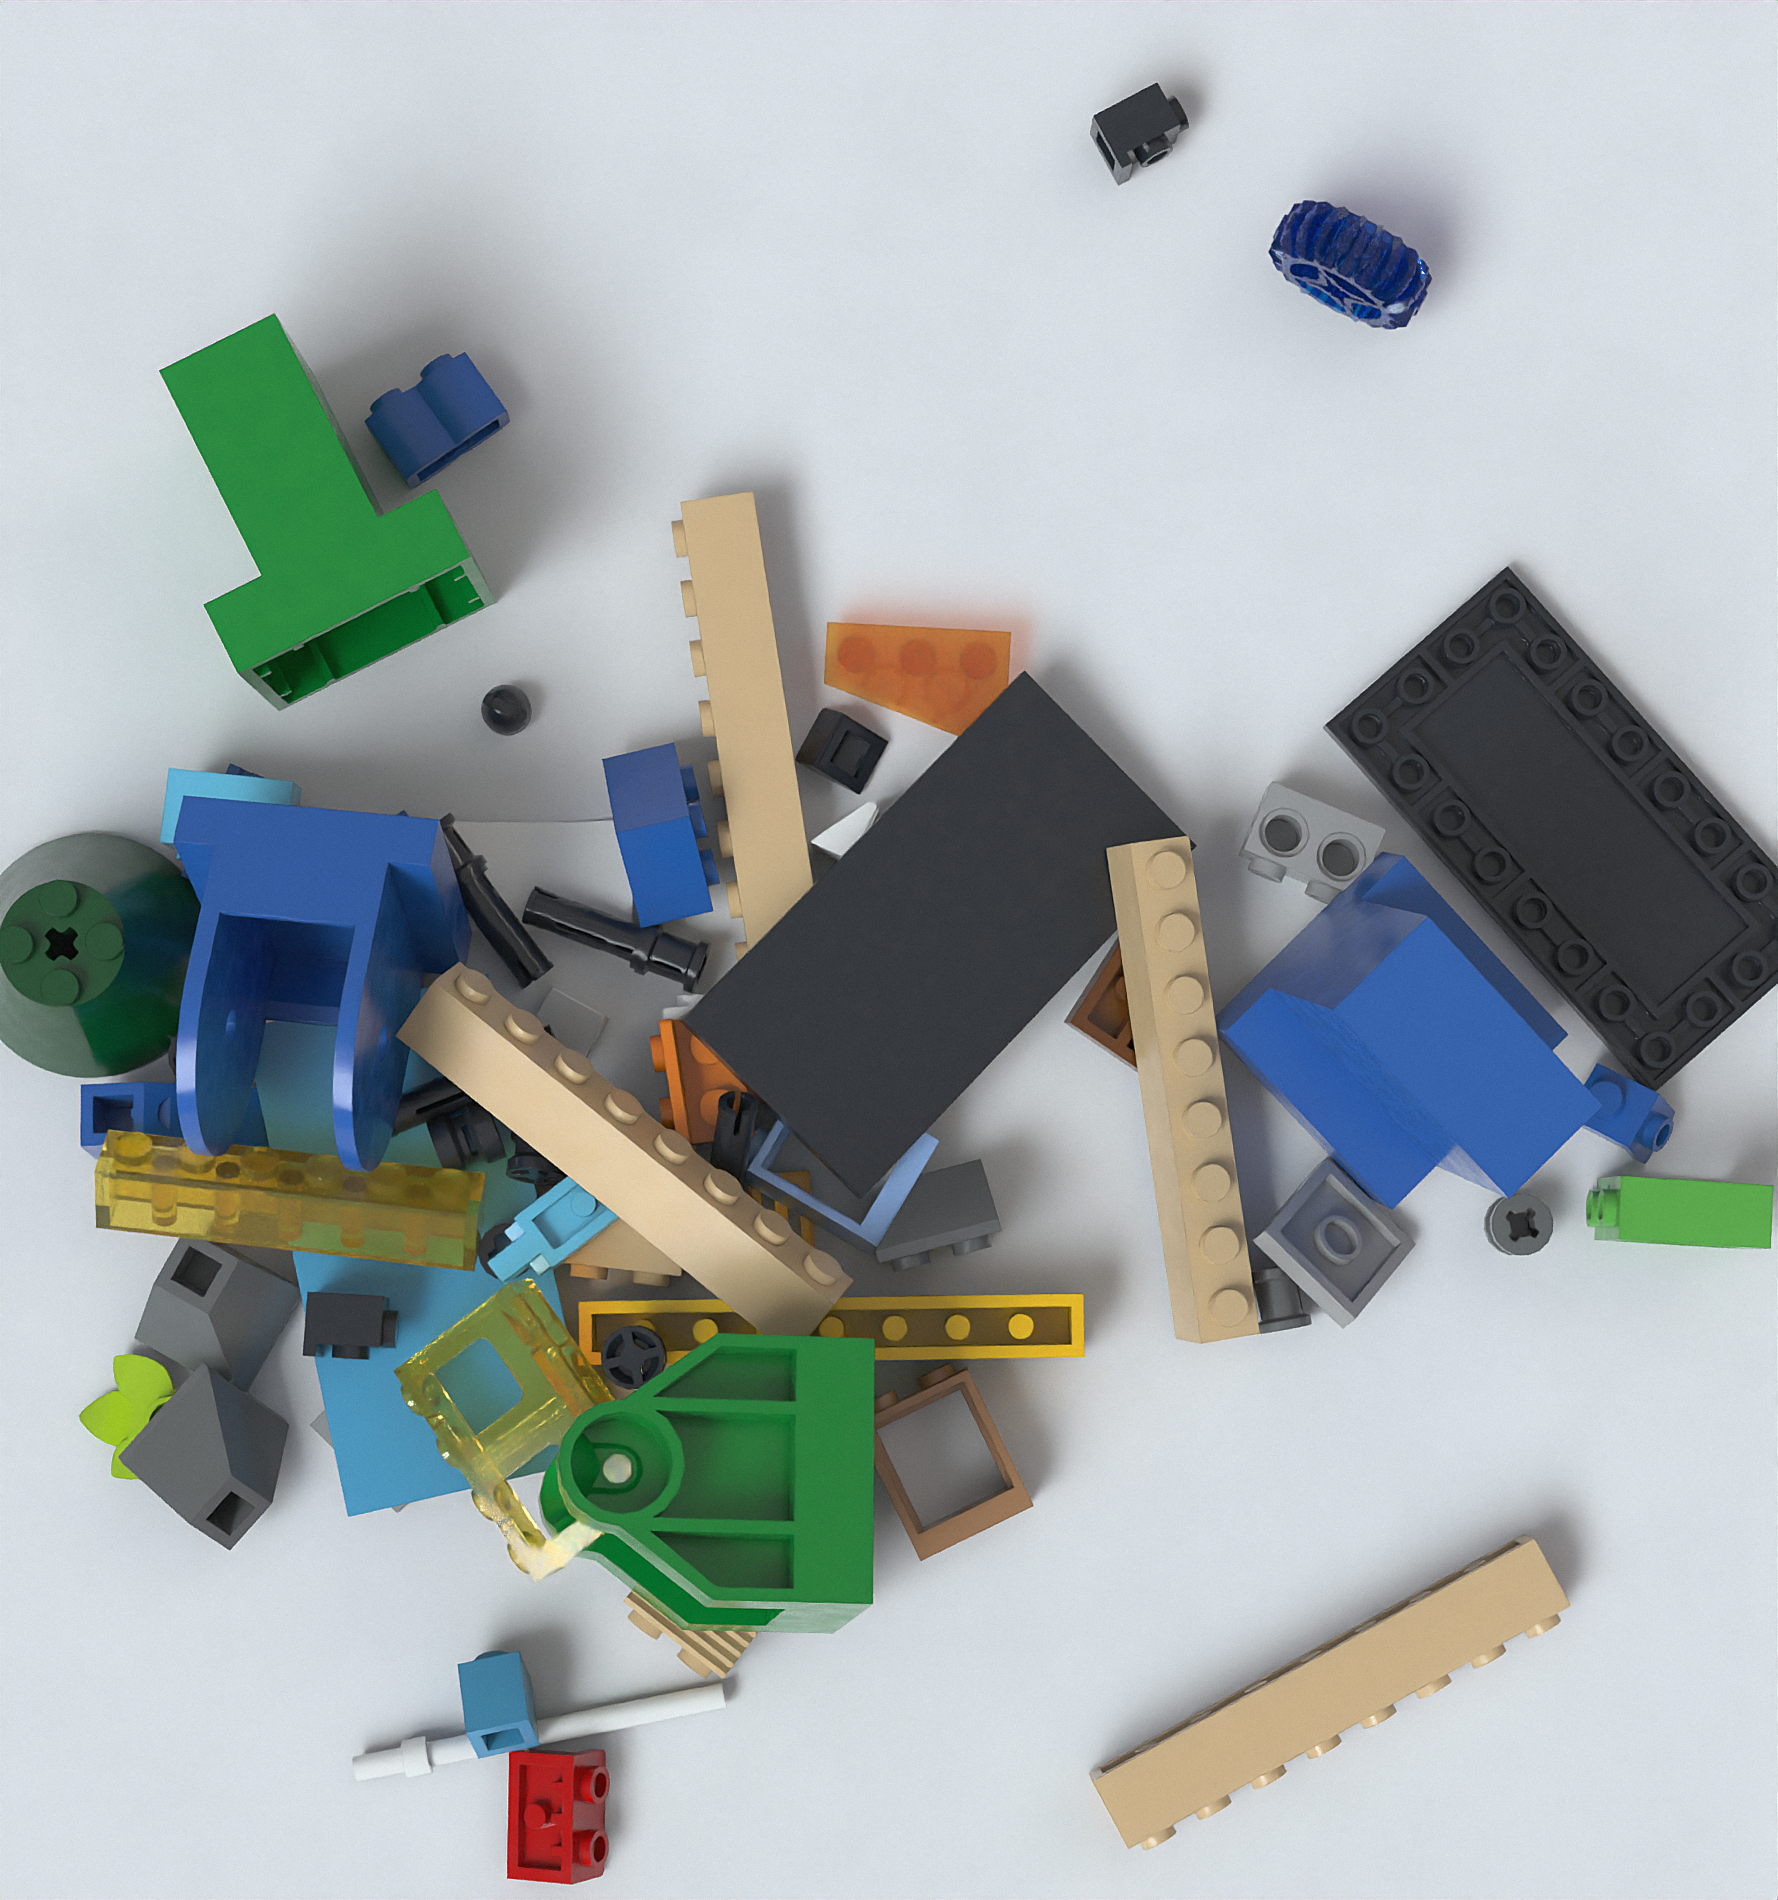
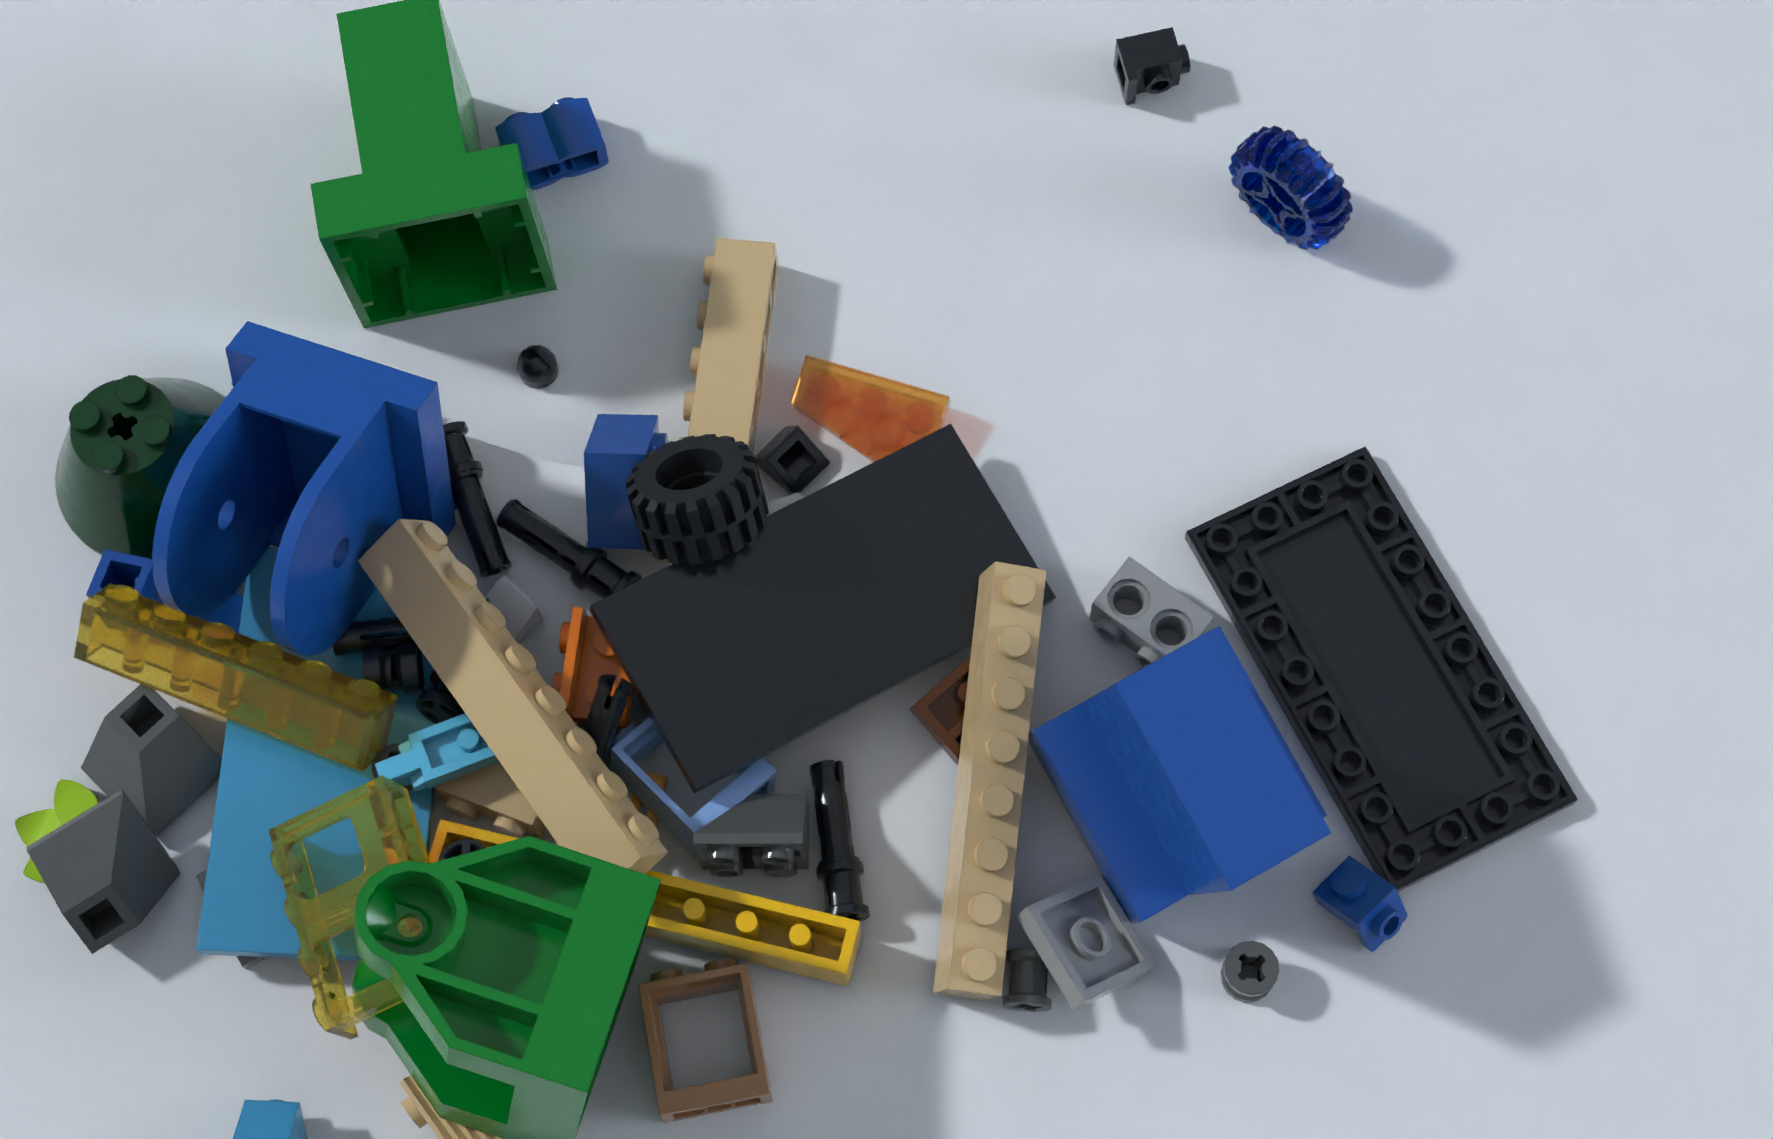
camera: 20 degrees right, 15 degrees down
(349, 1325) = (246, 788): black brick -> none
(784, 890) = (697, 499): none -> black tyre
(1035, 1225) = (839, 866): none -> black pin
(1681, 1212) = (1391, 990): bright green window -> none

